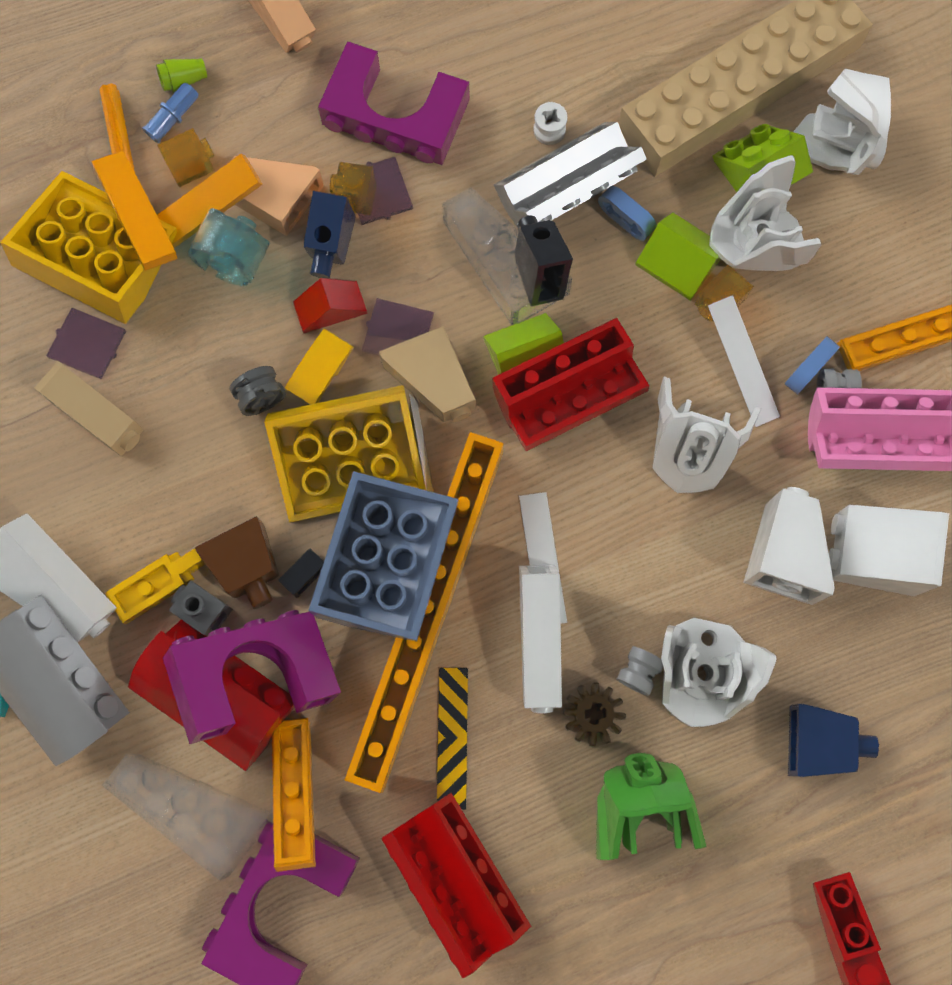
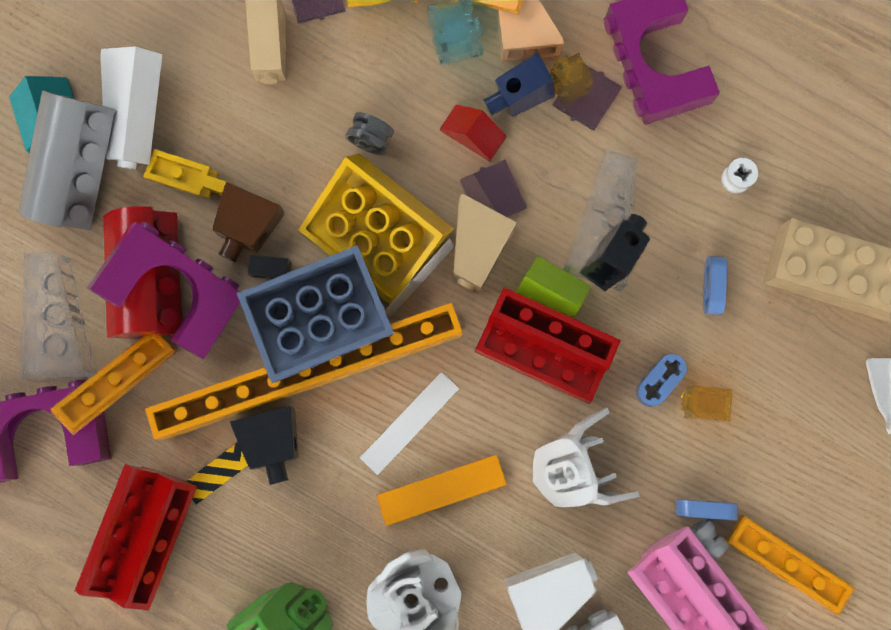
camera: 50 degrees right, 5 degrees up
(199, 608) = (191, 219): dark grey brick -> none
(319, 367) = (421, 161): yellow slope -> none
(462, 692) = (268, 441): none -> black torso
(540, 637) = (349, 463): white slope -> none
(570, 174) = (708, 221): brick -> none
(600, 724) = (323, 555): dark brown gear -> none
(624, 575) = (441, 490): none -> light orange tile
(640, 671) = (378, 553): light grey wheel -> none
(678, 255) = (716, 348): lime slope -> none
(680, 316) = (667, 385): none -> medium blue beam
(743, 359) = (668, 455): white sticker -> none
(757, 229) = (780, 384): white piece -> none
(763, 145) = (840, 355): lime slope -> none

